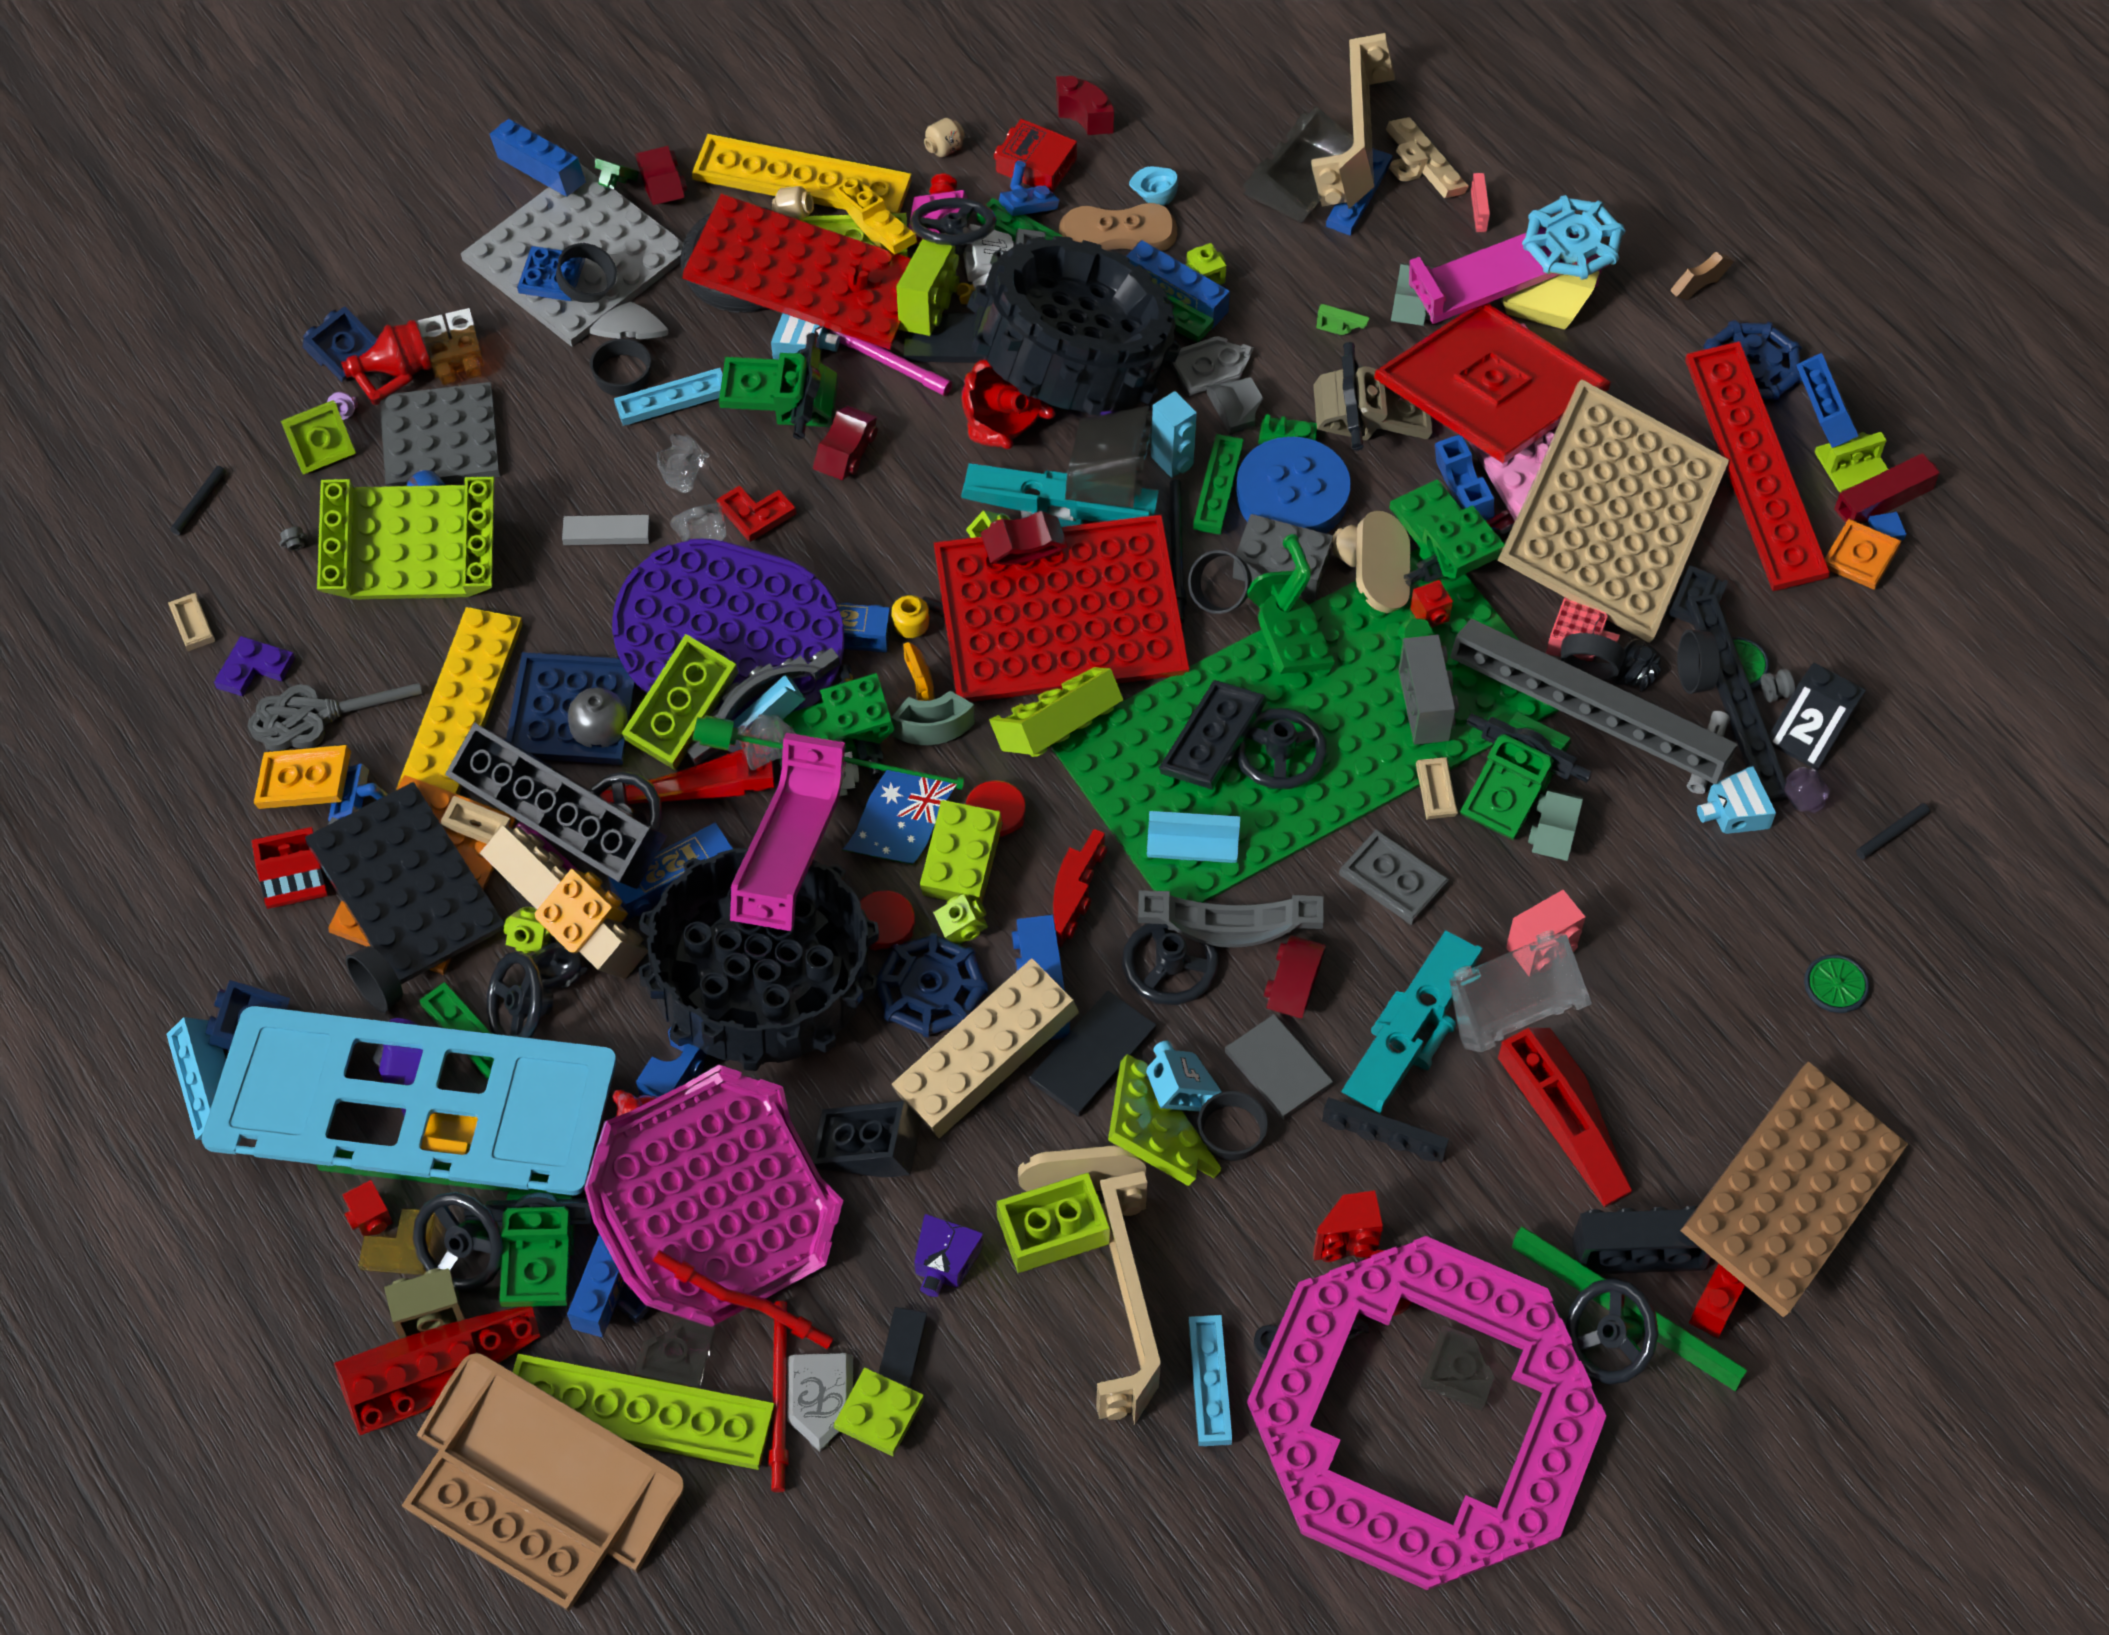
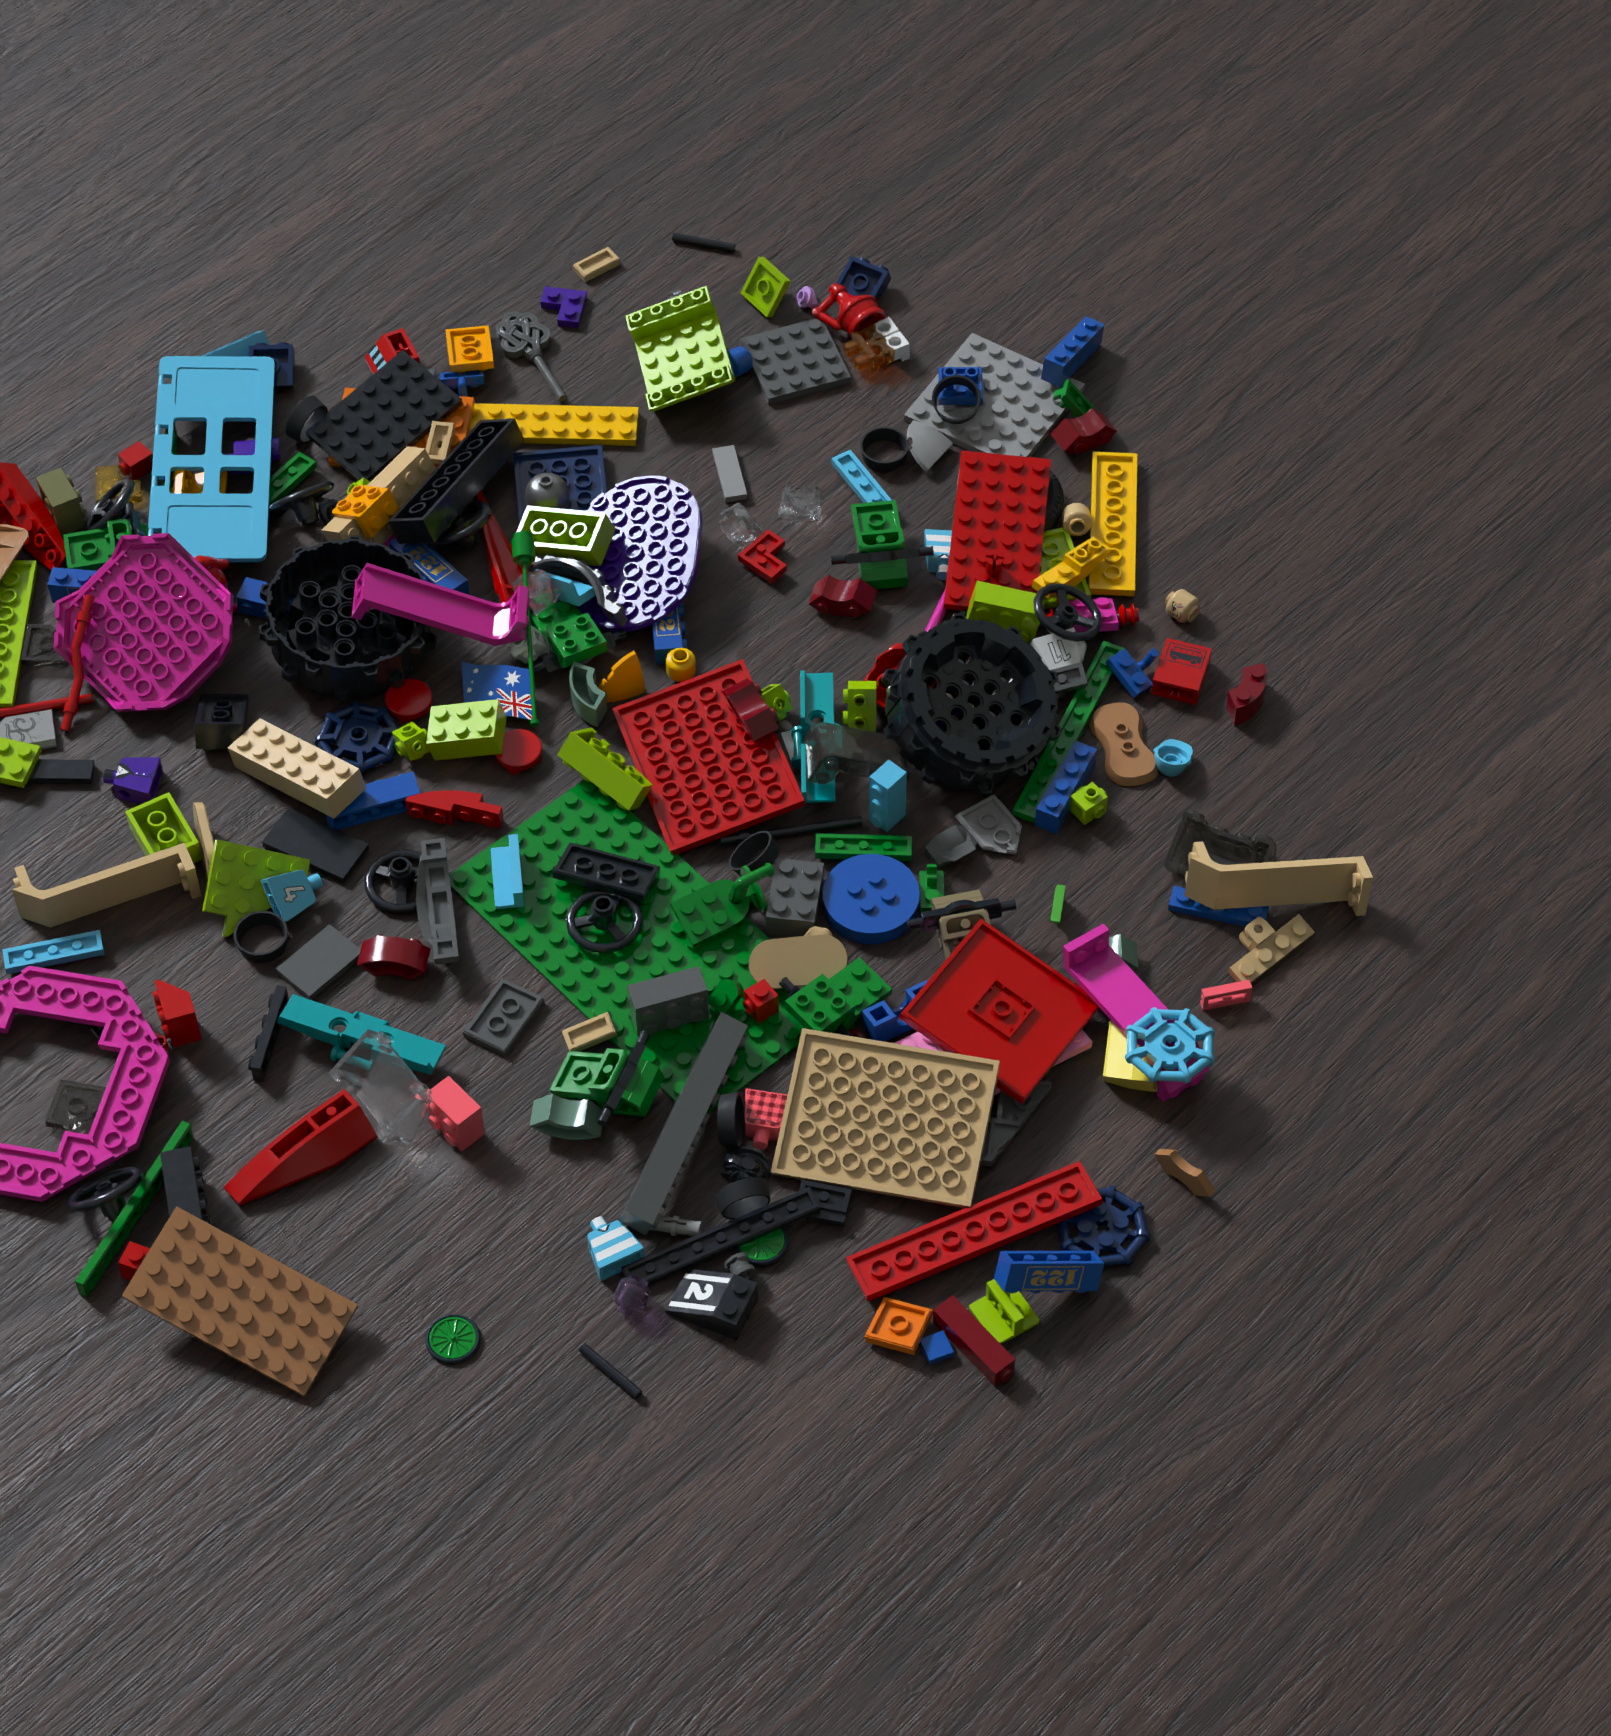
camera: 80 degrees right, 5 degrees down
(1028, 442) = (861, 705): none -> lime brick

